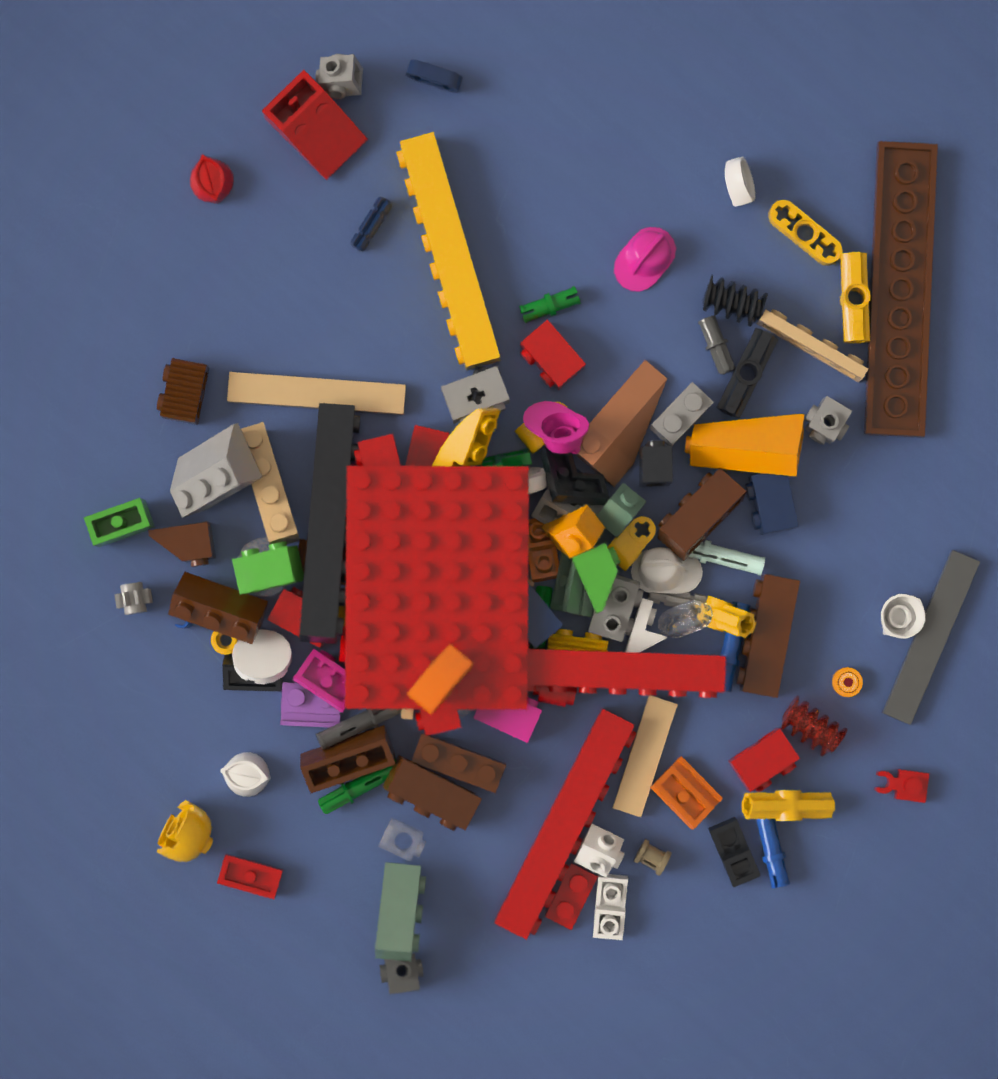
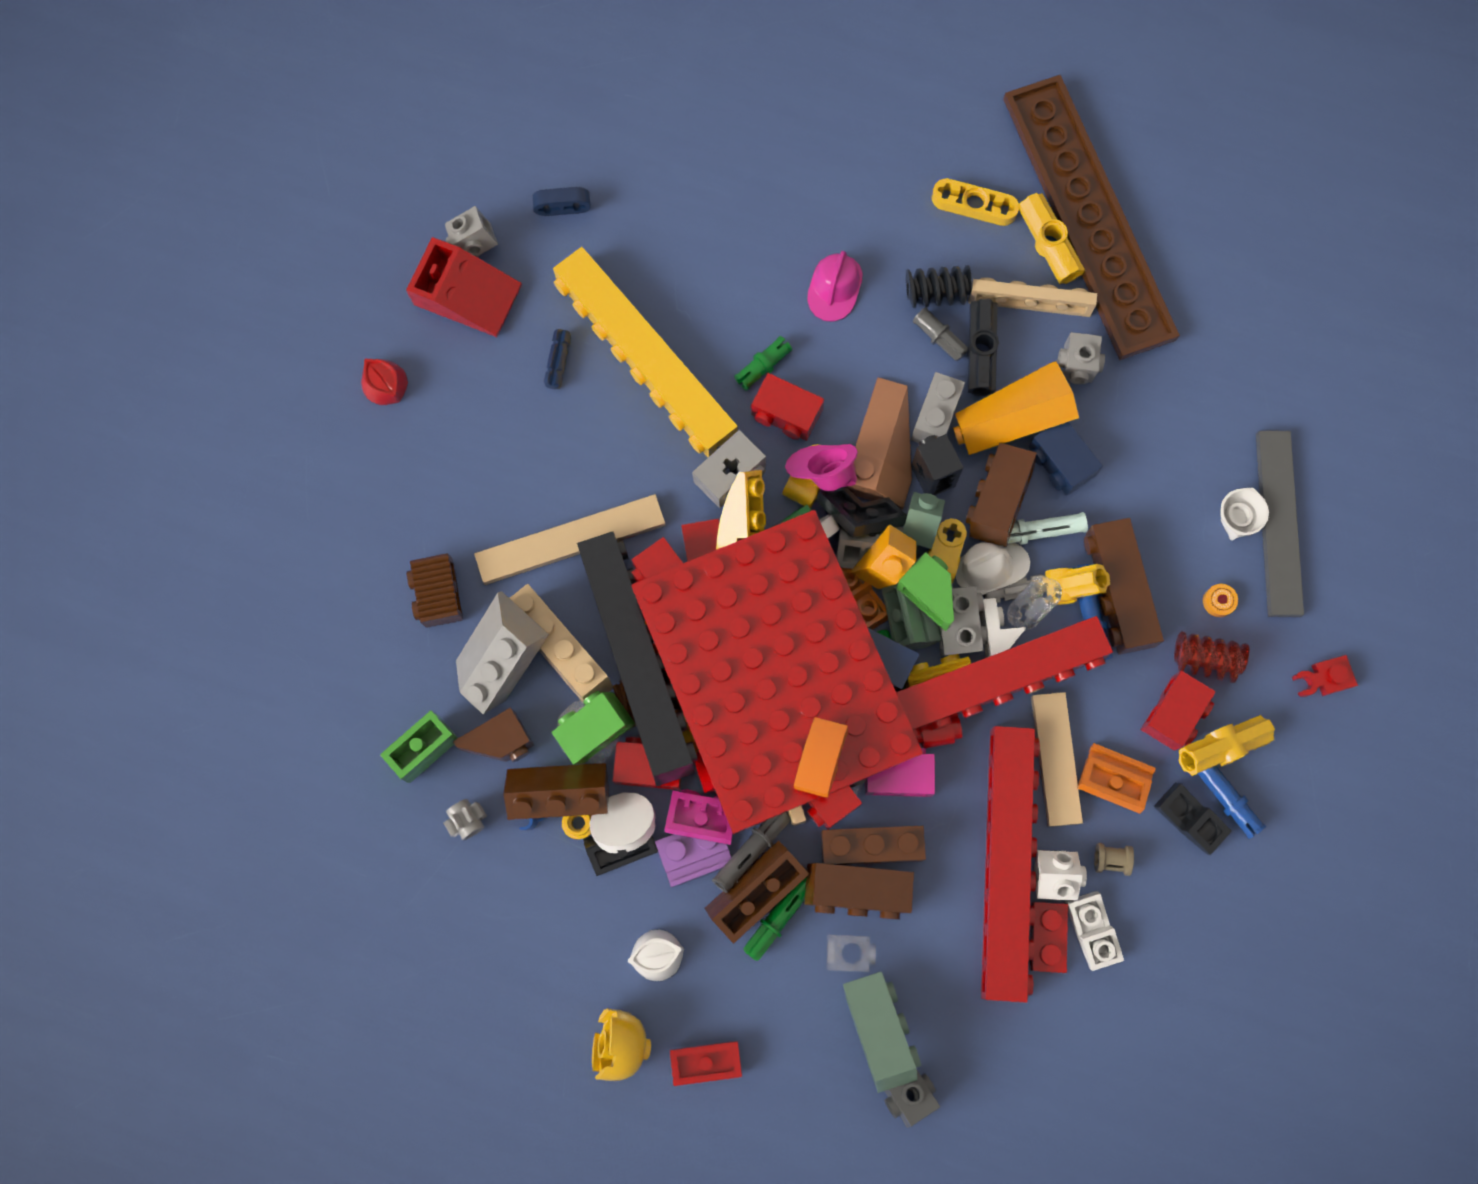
camera: 20 degrees left, 10 degrees down
(739, 181) = (892, 179): white hat -> none

